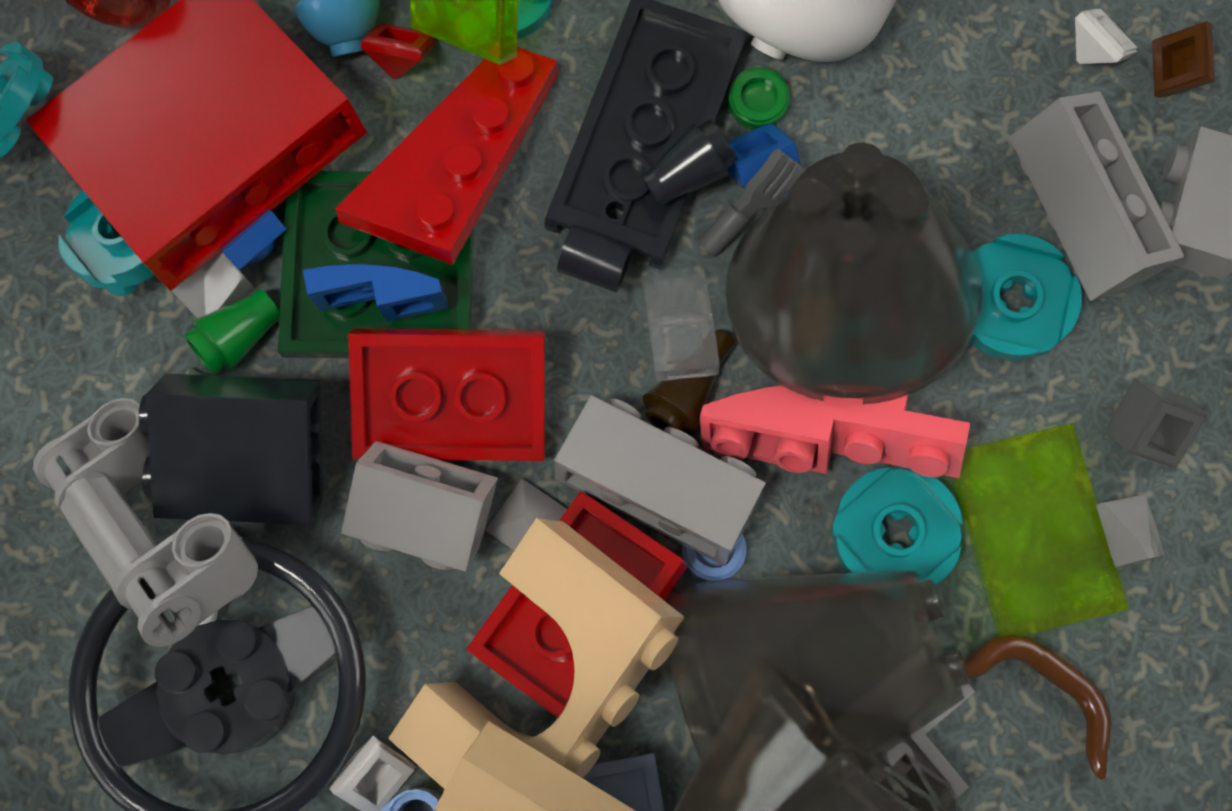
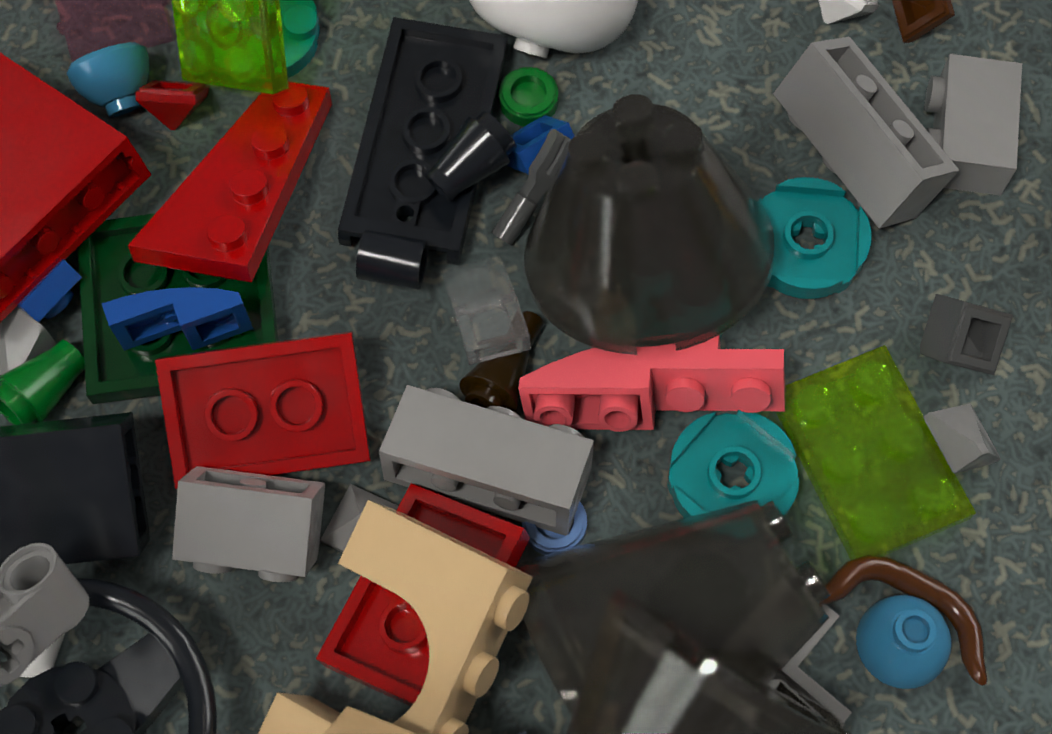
camera: 10 degrees left, 10 degrees down
(1032, 722) = (903, 641): none -> dark azure brick

